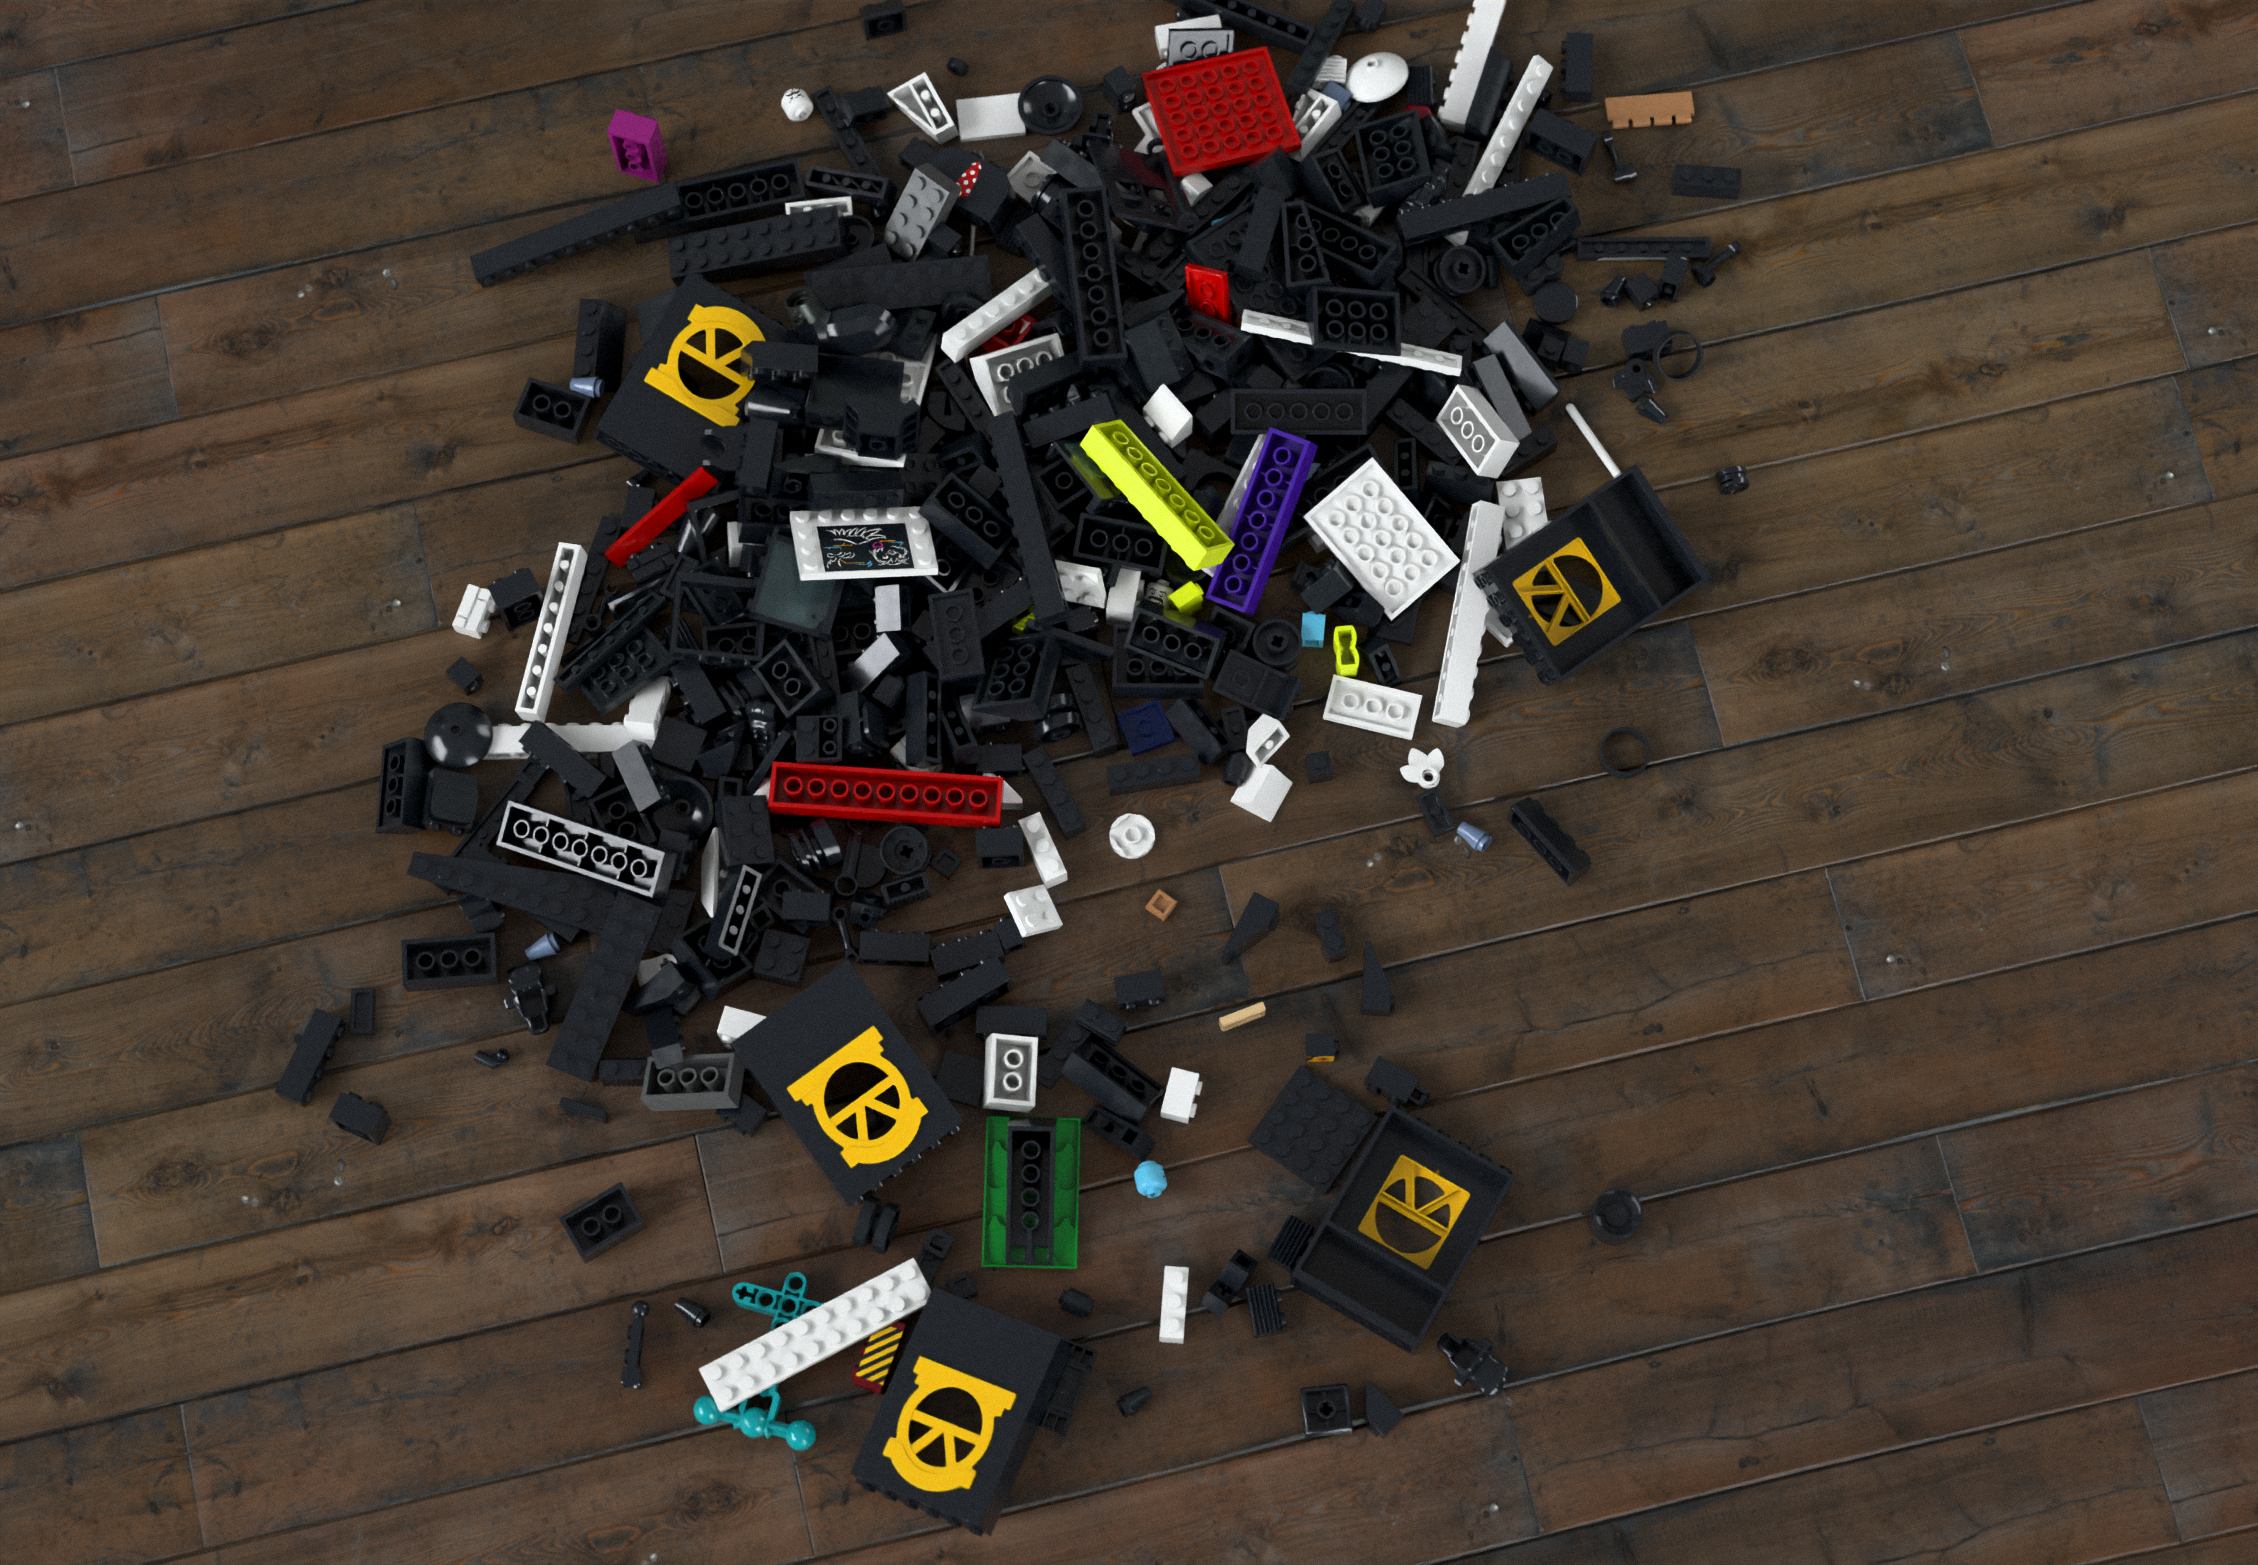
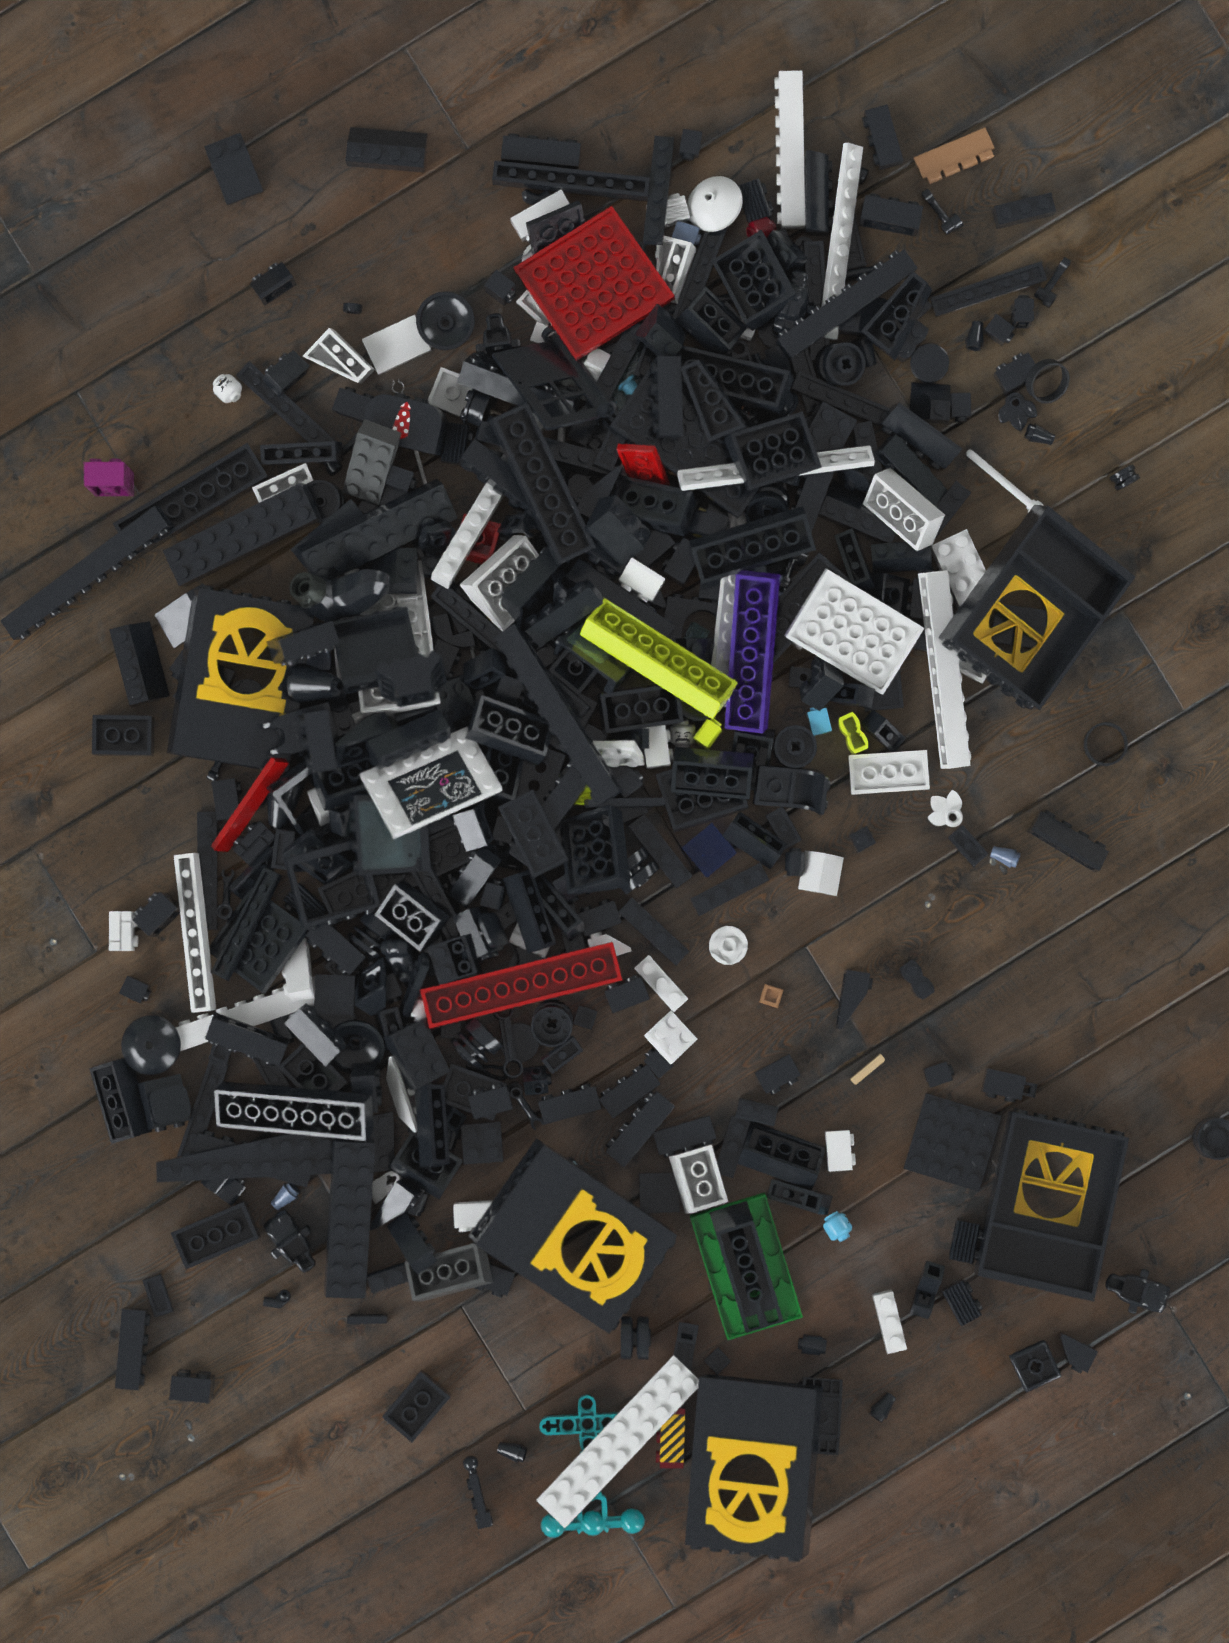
camera: 20 degrees left, 15 degrees up
(589, 386) = (146, 707): sand blue cone -> none
(1264, 739) = (810, 831): white slope -> none
(1376, 991) = (966, 1011): black slope -> none

